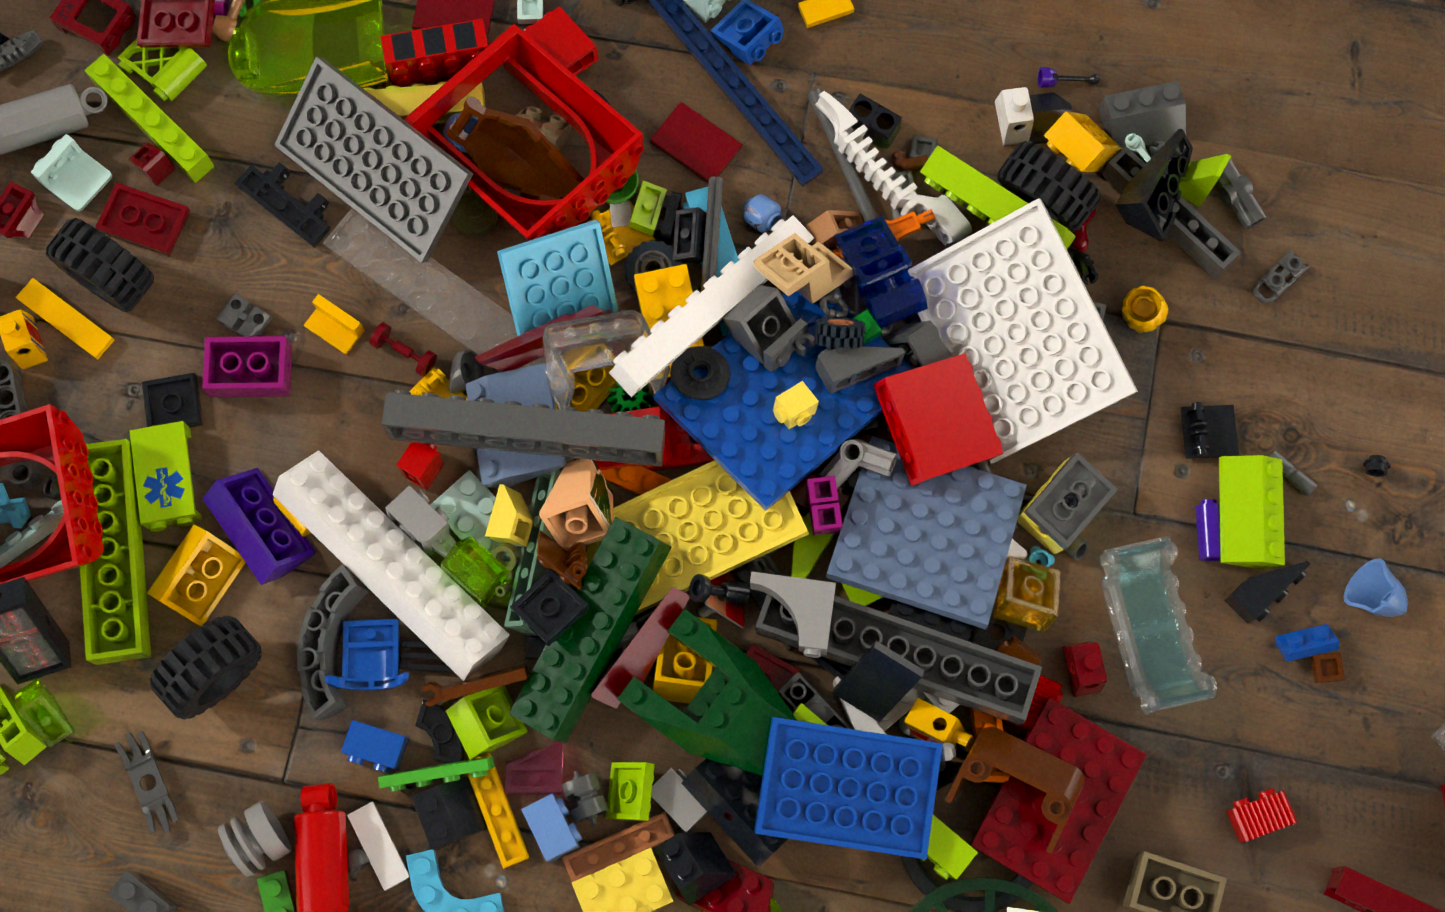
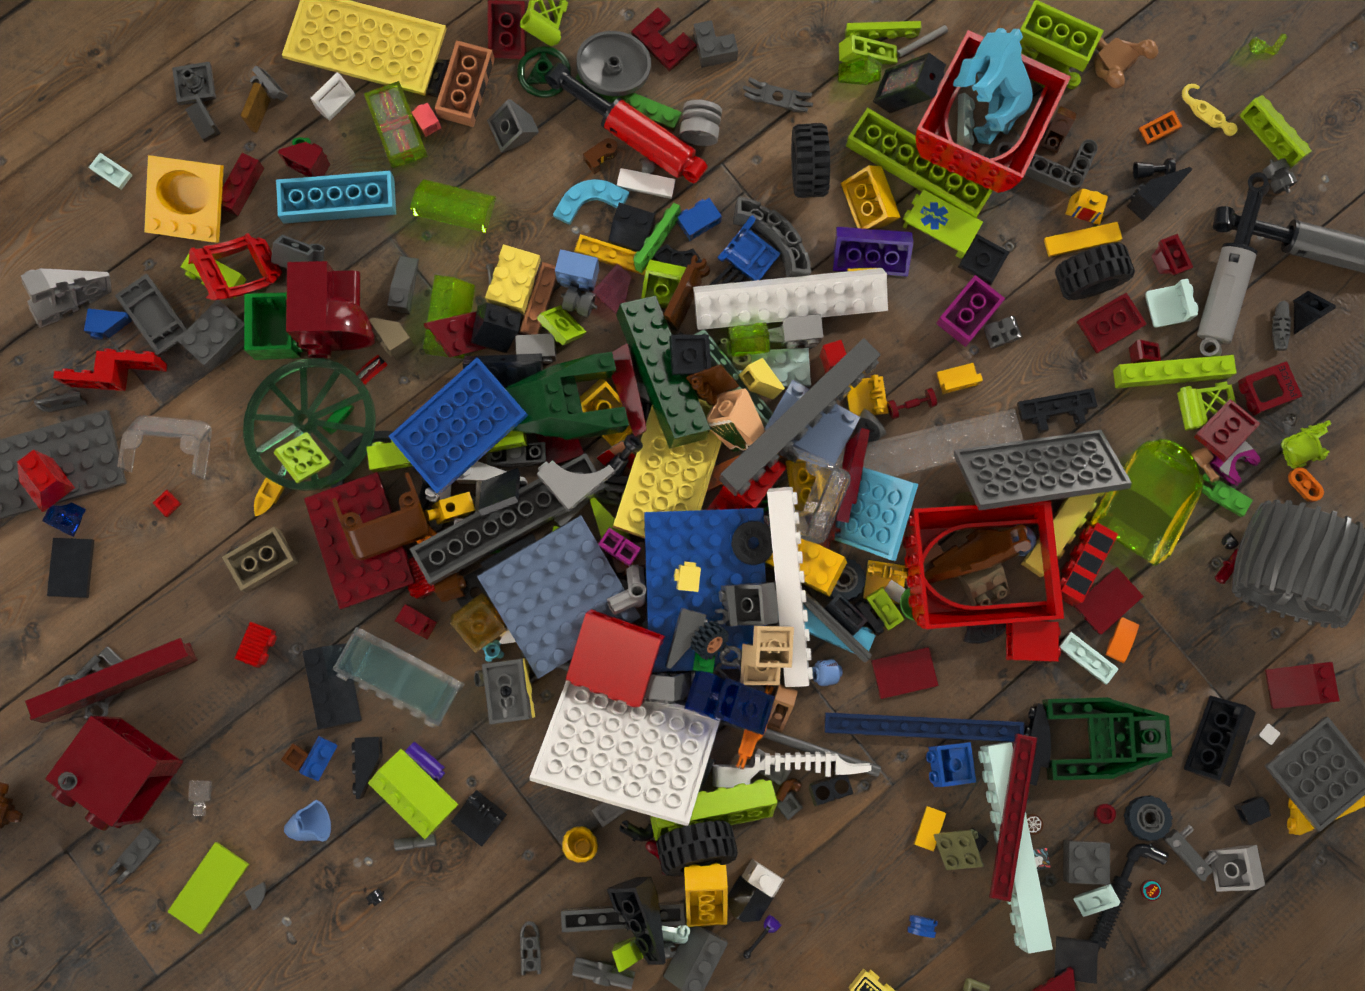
camera: 130 degrees right, 5 degrees up
(1241, 680) = (332, 697): none -> black slope

